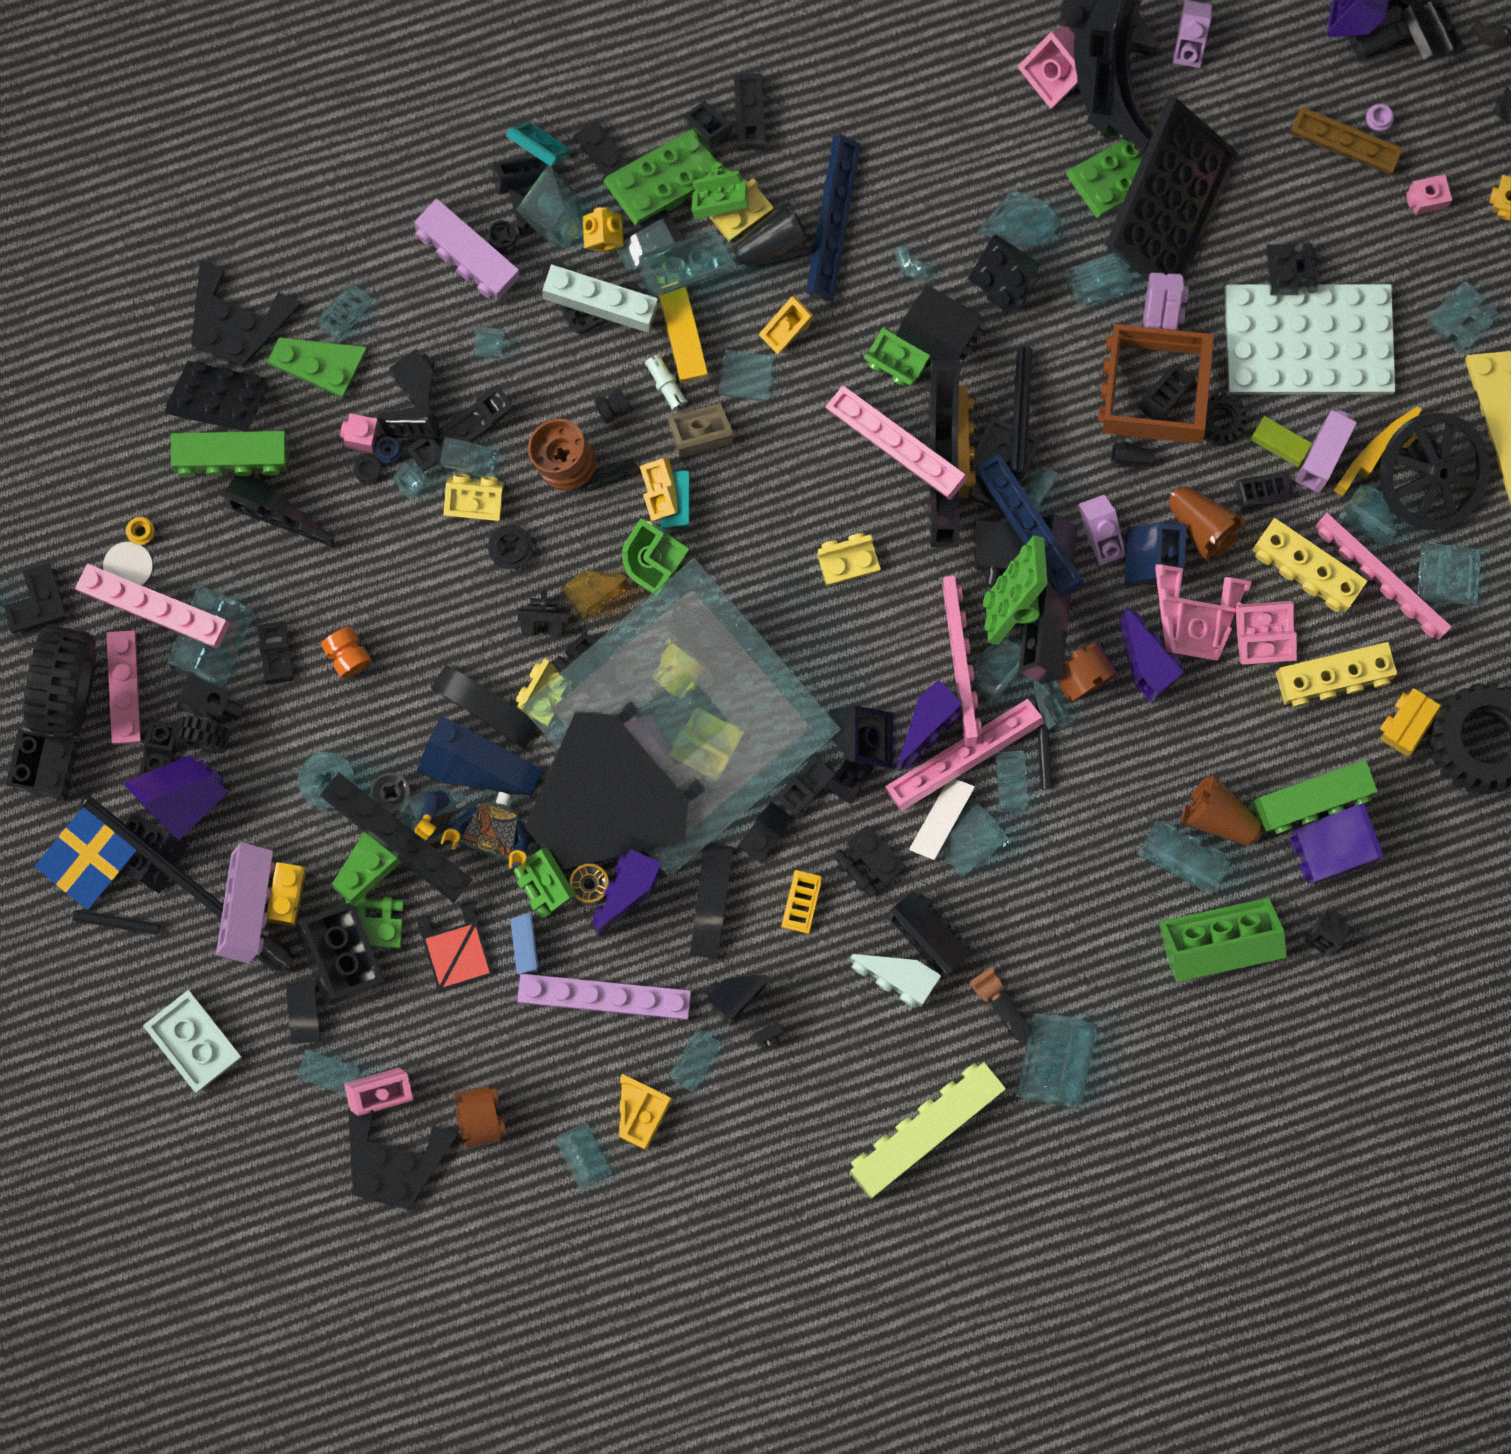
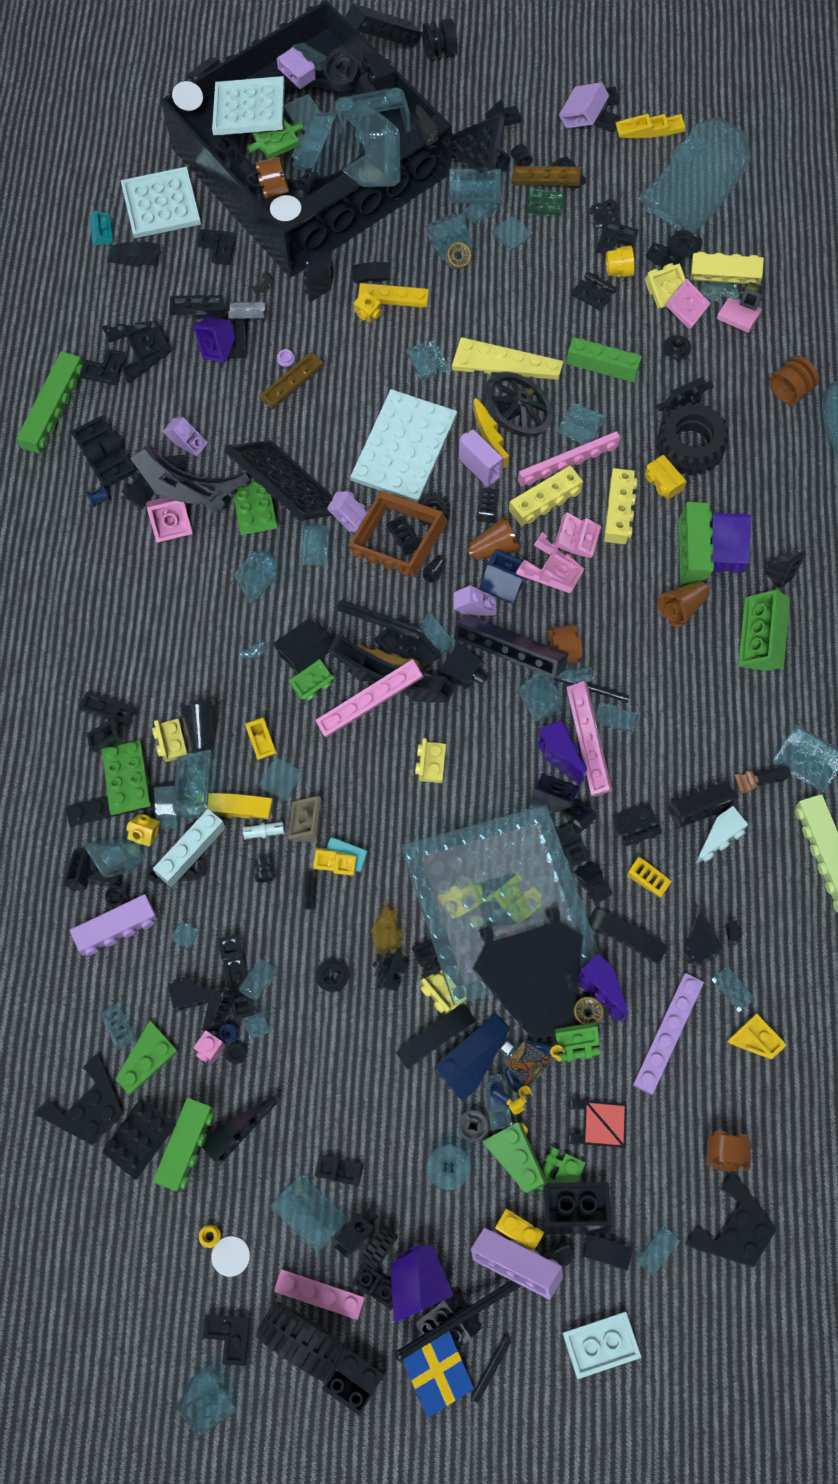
camera: 60 degrees left, 10 degrees down
(152, 606) = (271, 1247): bright pink plate -> none
(346, 652) = (360, 1118): orange wheel -> none
(378, 1091) = (687, 1218): bright pink brick -> none
(396, 837) = (510, 1132): black plate -> none
(473, 497) = (287, 987): light yellow bracket -> none
(524, 944) = (614, 1073): medium blue slope -> none
(539, 143) = (64, 847): teal plate -> none
(554, 443) = (274, 911): dark orange wheel -> none
(583, 1156) = (775, 1090): clear light blue slope -> none
(652, 555) = (379, 882): bright green brick -> none
(719, 192) = (153, 744): bright green slope -> none
(833, 218) = (202, 684): dark blue plate -> none
(941, 818) = (626, 768): white sticker -> none
(960, 648) = (520, 714): bright pink plate -> none
(972, 839) = (644, 756): clear light blue slope -> none
(1005, 274) = (287, 595): black plate -> none
(1016, 591) = (500, 658): bright green plate -> none
(1028, 522) = (460, 636): dark blue plate -> none
(1148, 662) = (569, 606): dark purple slope -> none
(1184, 857) = (705, 632): clear light blue slope -> none
(1281, 441) = (461, 484): lime slope -> none
(1282, 269) = (355, 441): black plate -> none
(1370, 515) = (529, 450): clear light blue slope -> none
(1429, 195) = (345, 348): bright pink brick -> none

